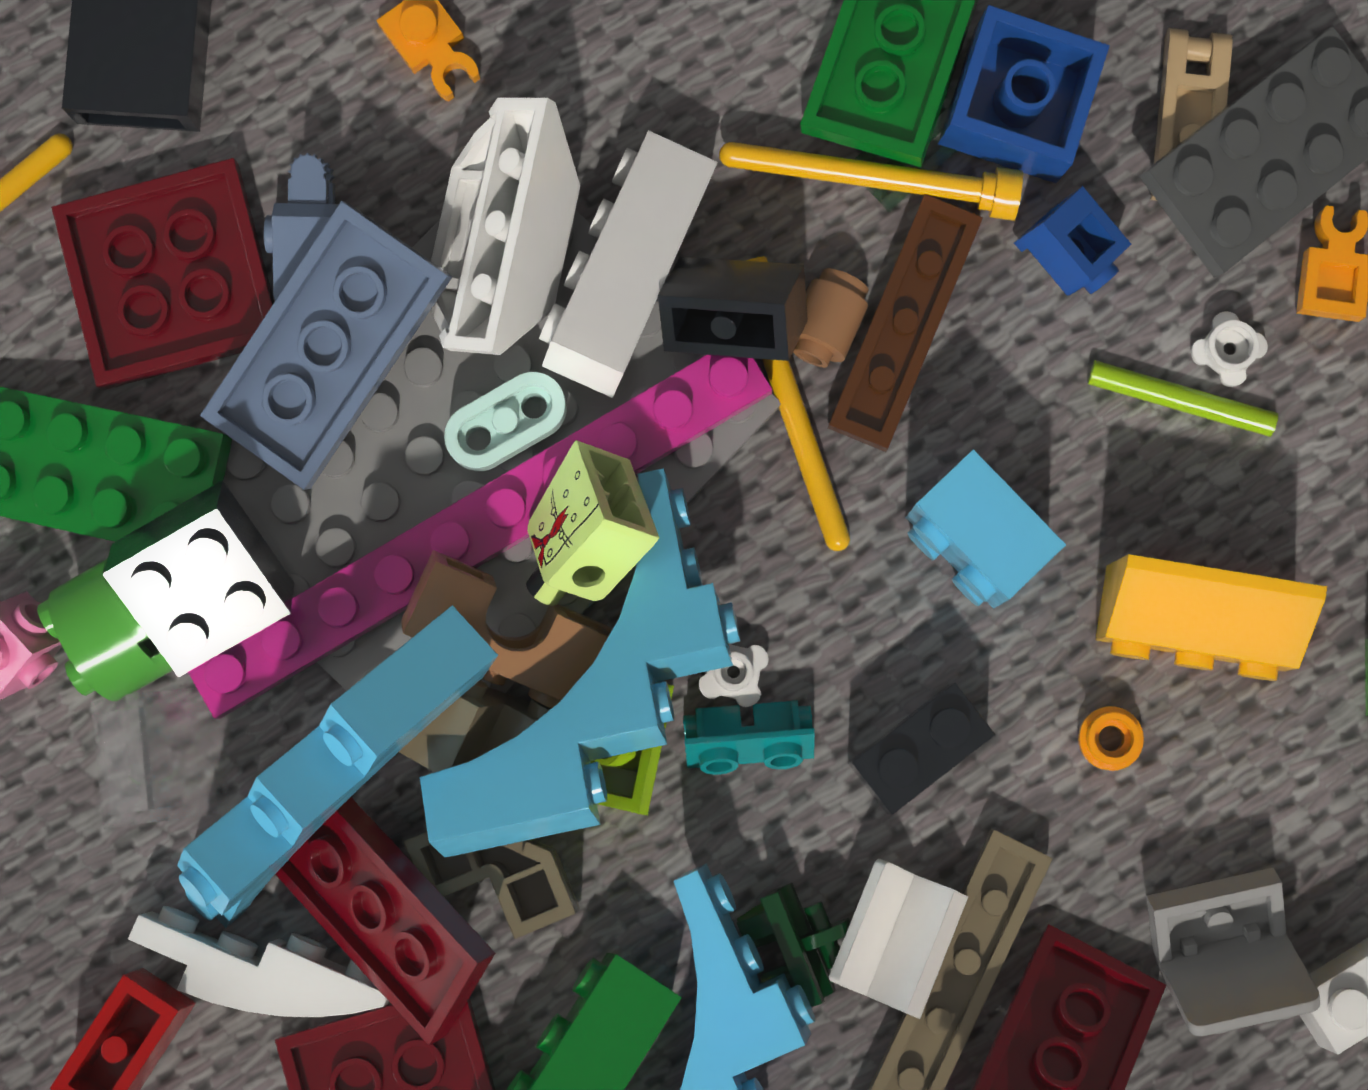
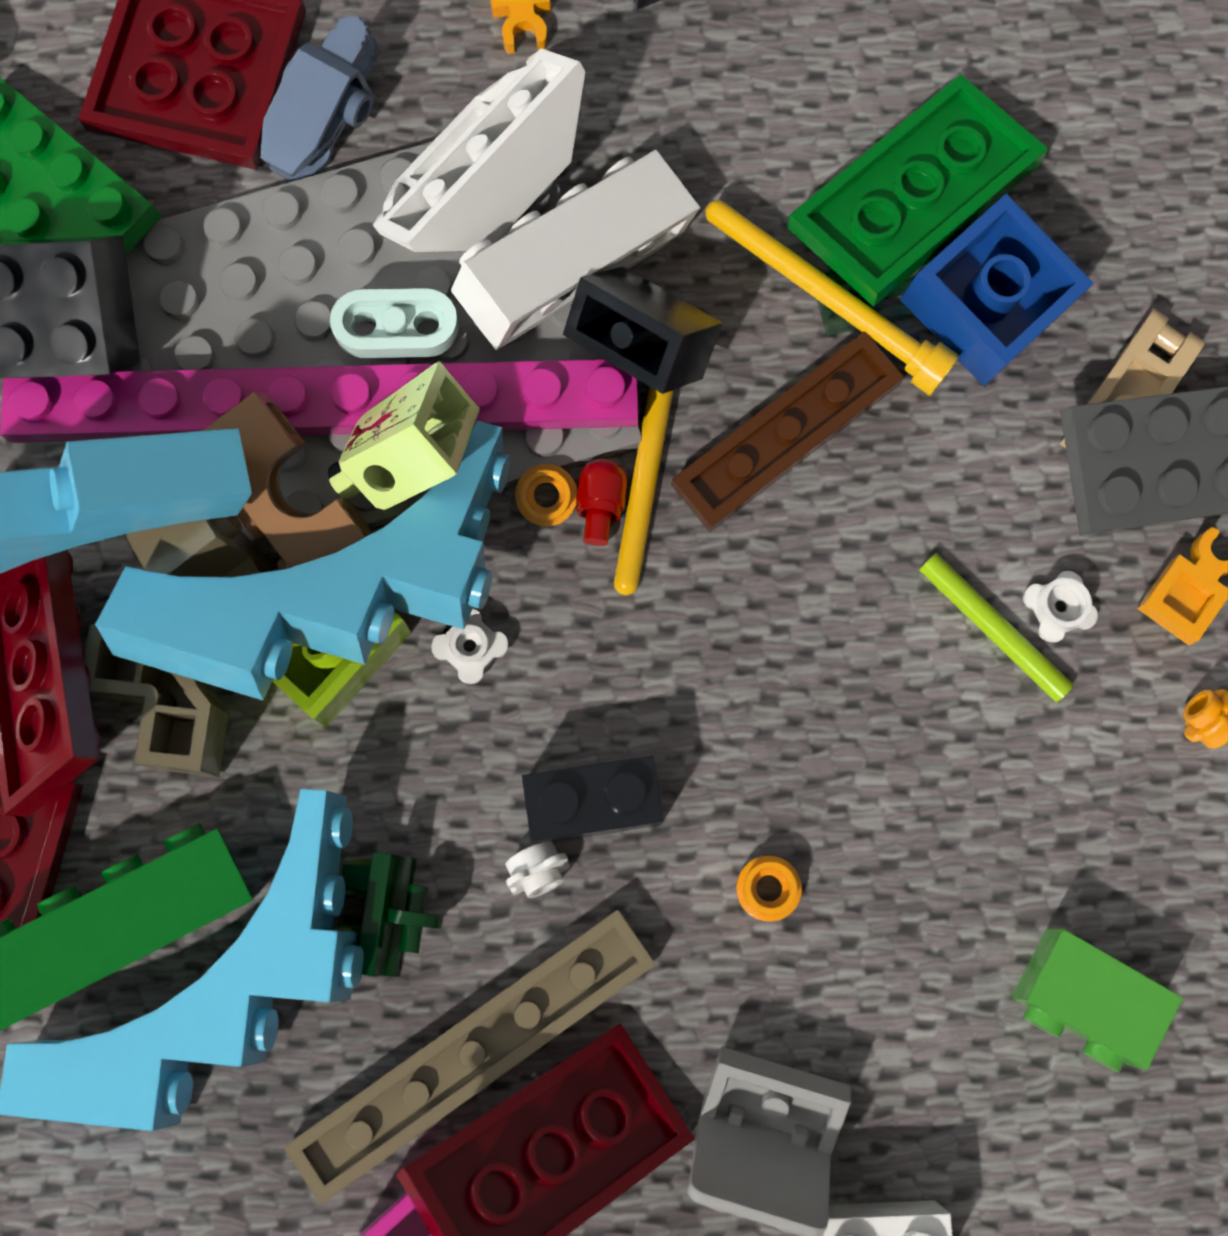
camera: 20 degrees right, 5 degrees down
(326, 345) = (279, 176): sand blue plate -> none
(740, 510) = (532, 480): none -> light orange plate
(773, 475) = (600, 498): none -> red cylinder
(779, 737) = (422, 699): teal hinge -> none
(834, 316) = (726, 393): medium nougat brick -> none
(898, 938) = (475, 957): white panel -> none
(904, 834) = (536, 869): none -> white plate
(982, 532) = (752, 636): medium azure brick -> none
(1076, 243) = (973, 441): blue brick -> none
(1207, 615) = (916, 823): yellow slope -> none

